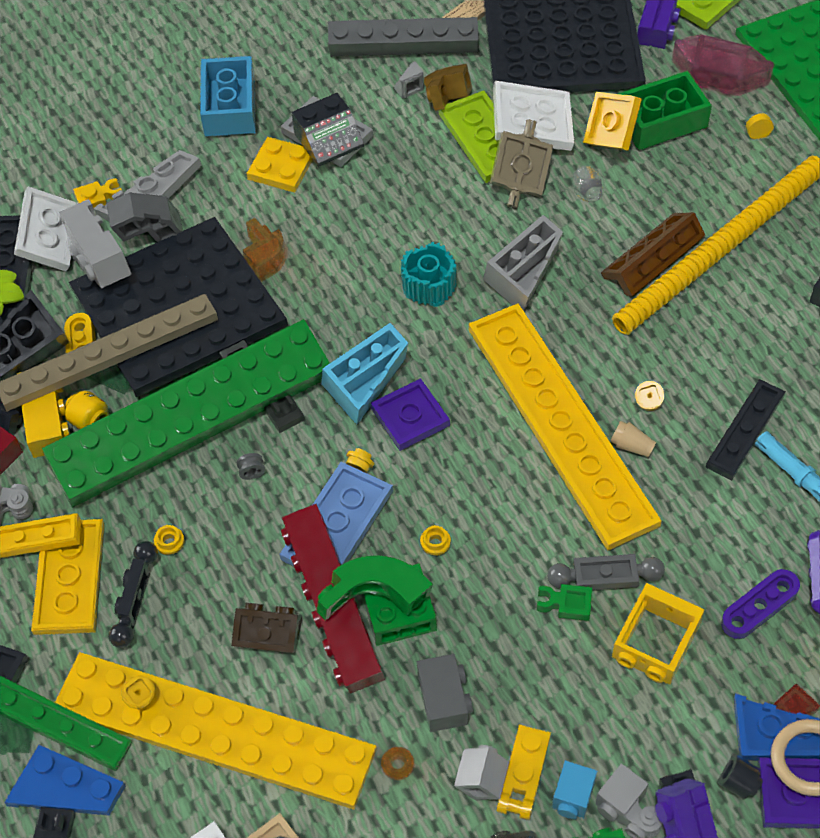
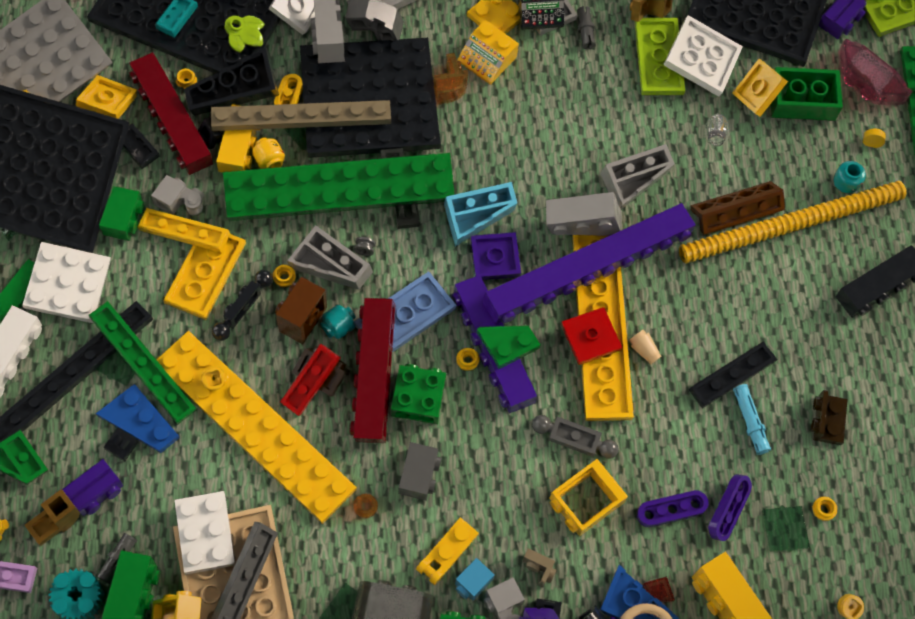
camera: 15 degrees right, 10 degrees up
(209, 566) = (301, 309): none -> reddish brown brick
(218, 497) = (329, 260): none -> light grey wedge
(258, 643) = (310, 379): none -> red tile
(260, 563) = (338, 321): none -> teal head
(292, 203) = (488, 52): none -> yellow slope
(360, 460) = (442, 275): yellow plate -> none
(378, 575) = (409, 370): green arch -> none
(388, 139) = (586, 27): none -> dark grey pin
(428, 274) = (560, 153): teal brick -> none
(459, 510) = (511, 380): none -> dark purple brick
(476, 498) = (508, 343): none -> green wing
(481, 773) = (417, 539): light grey brick -> none
(491, 324) = (584, 215): none -> light grey wedge
(520, 377) = (588, 264): none -> dark purple brick
(521, 163) = (673, 93): dark tan plate -> none
(566, 452) = (591, 336): none -> red plate
(572, 601) = (539, 447): green plate -> none
(643, 733) = (538, 562): none -> dark tan bracket
(649, 395) = (675, 318): tile -> none
(756, 173) = (849, 177): none -> teal head

